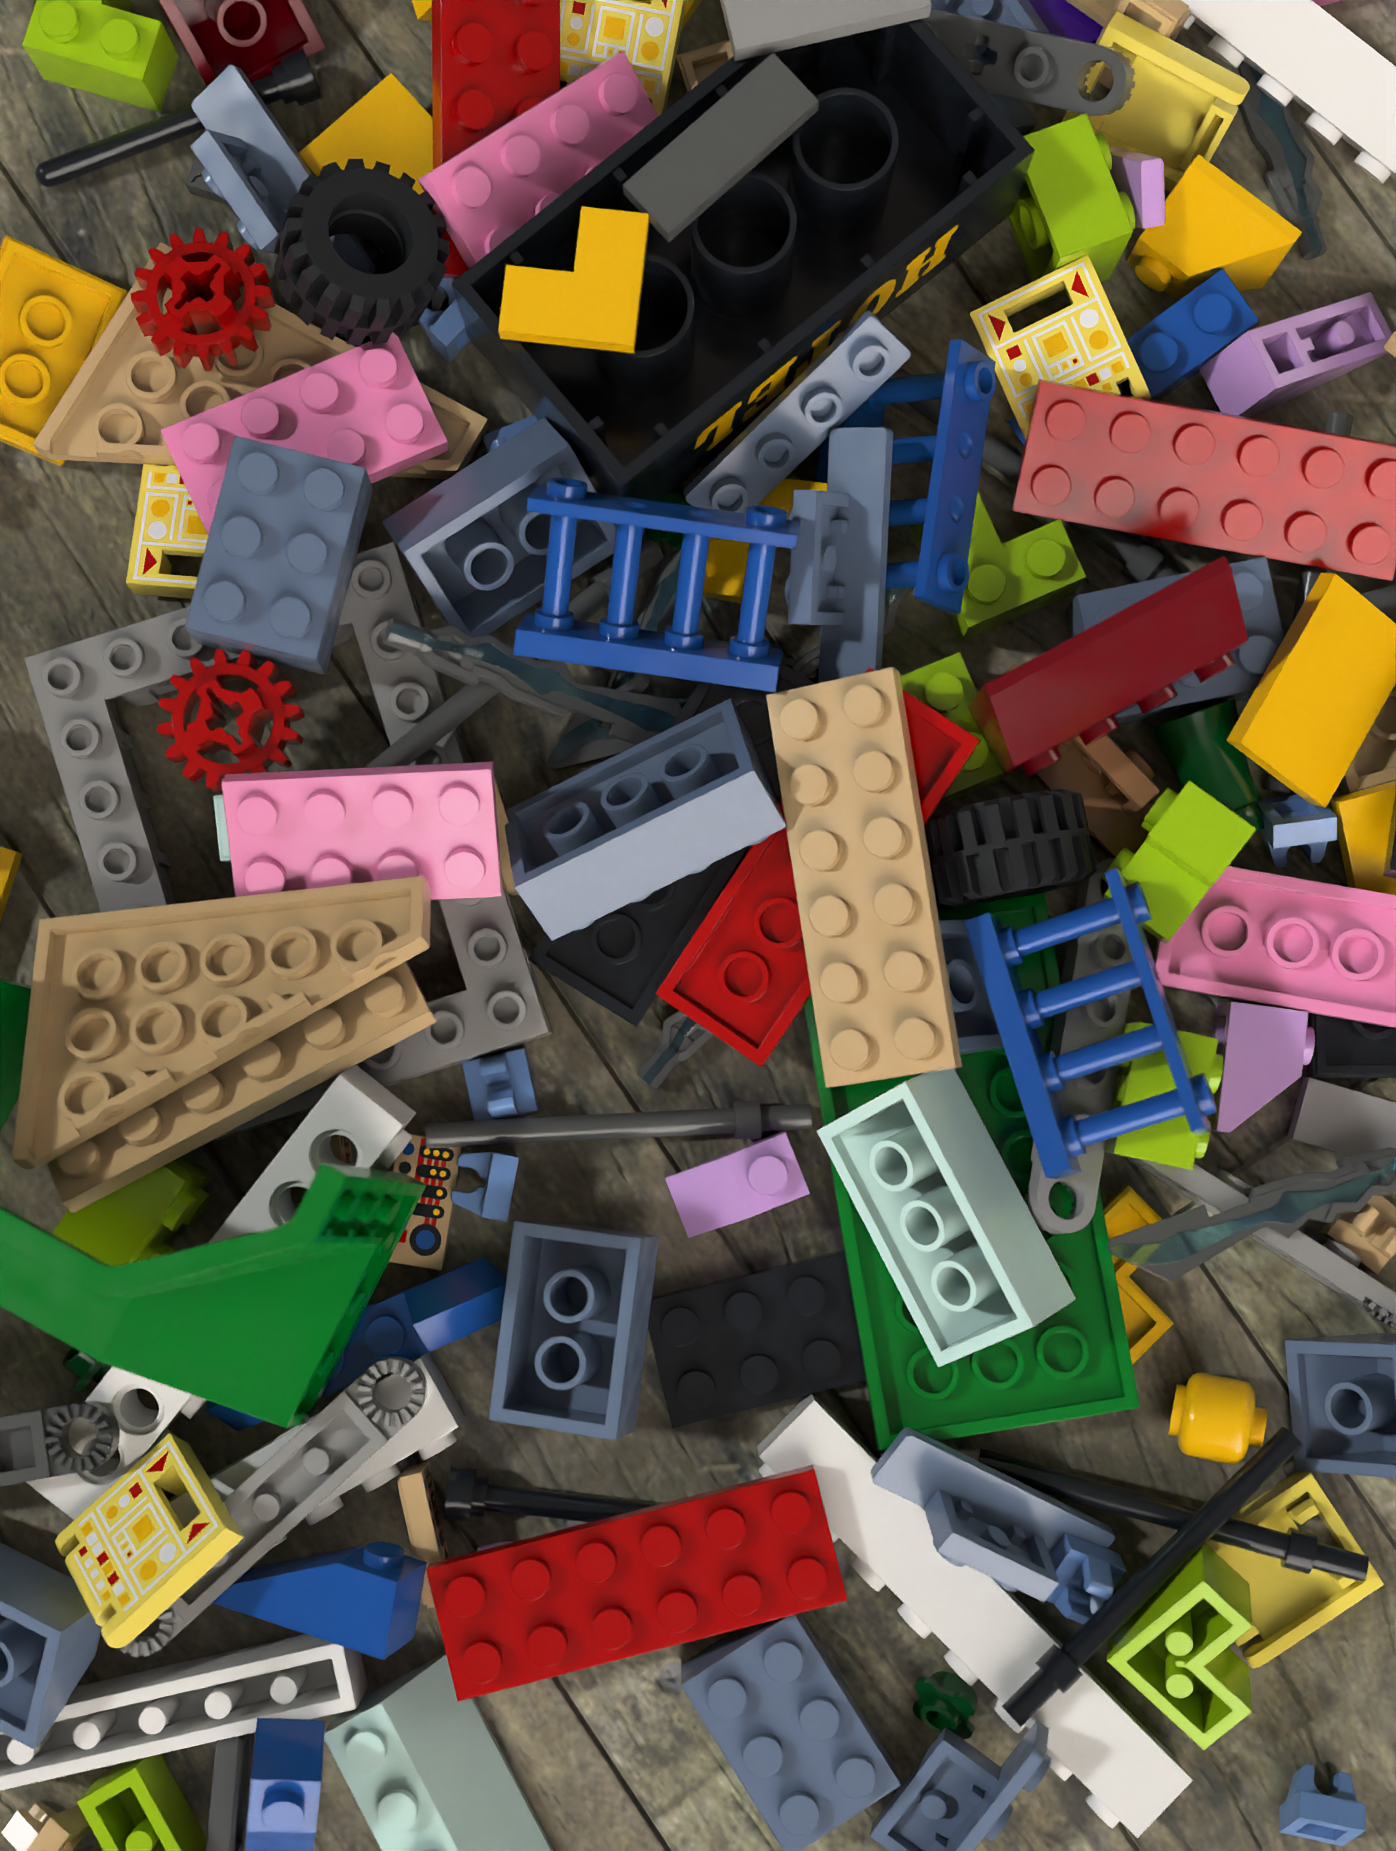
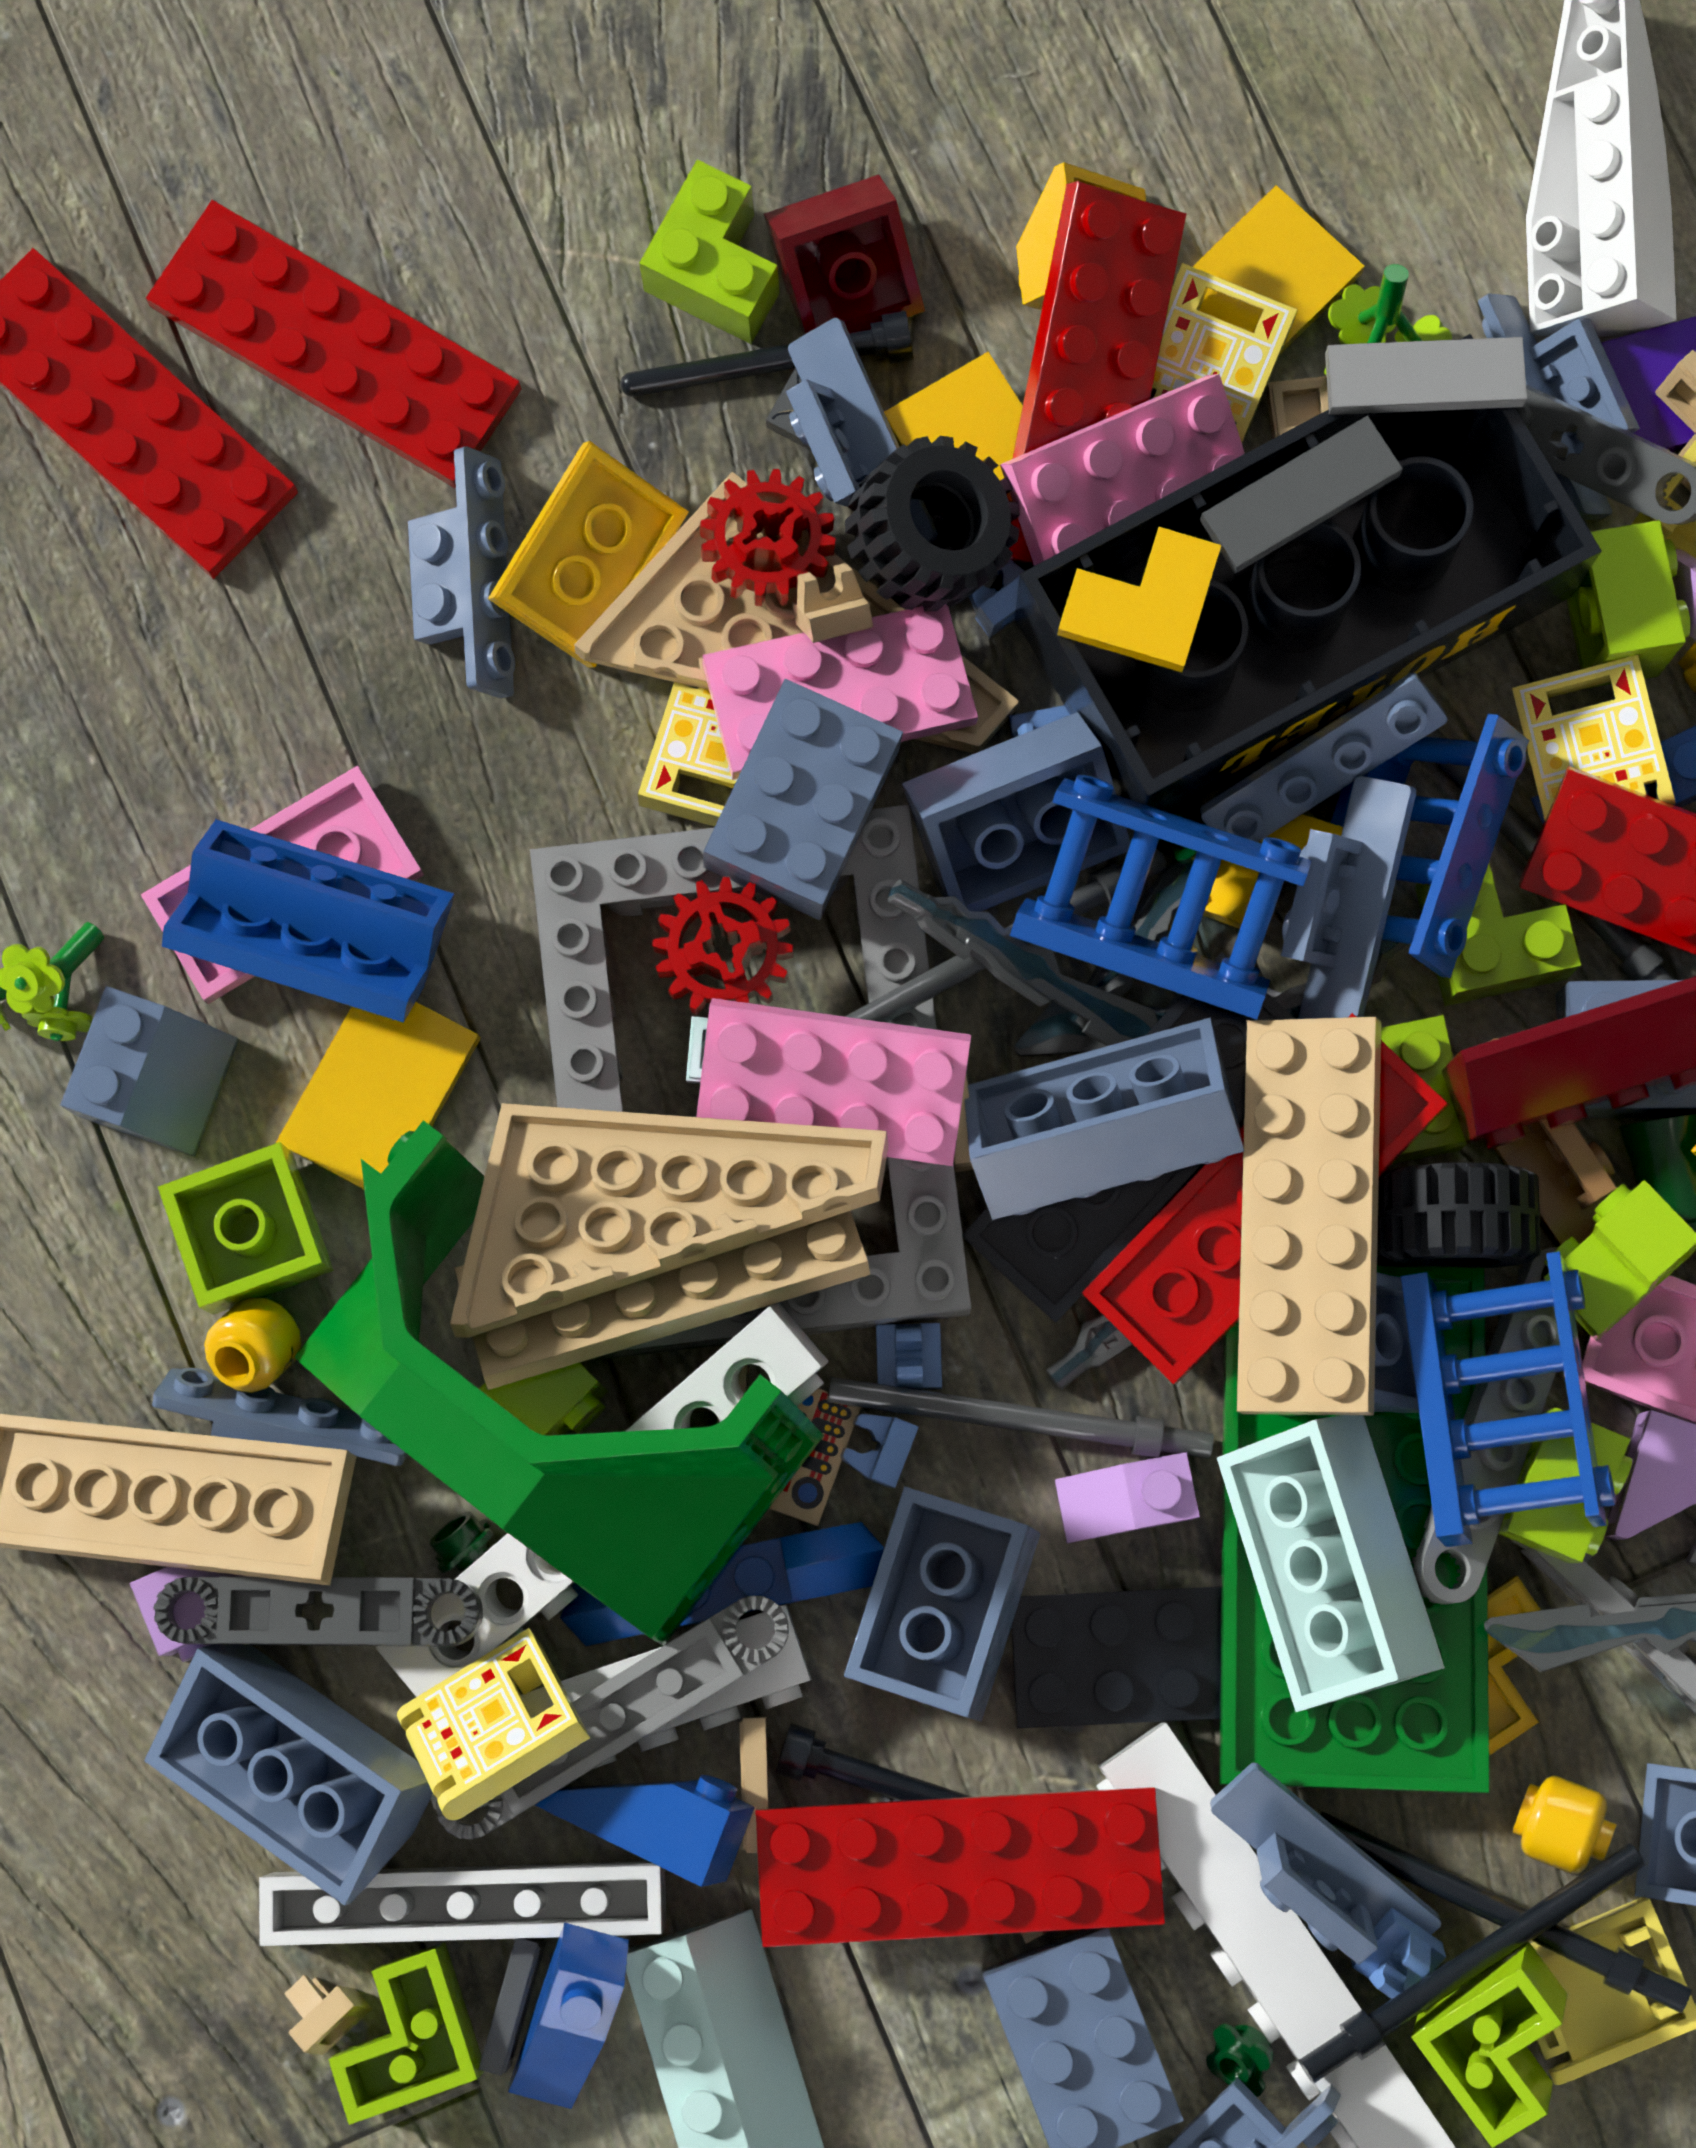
camera: 15 degrees right, 5 degrees down
(282, 362) = (831, 612): none -> tan tile

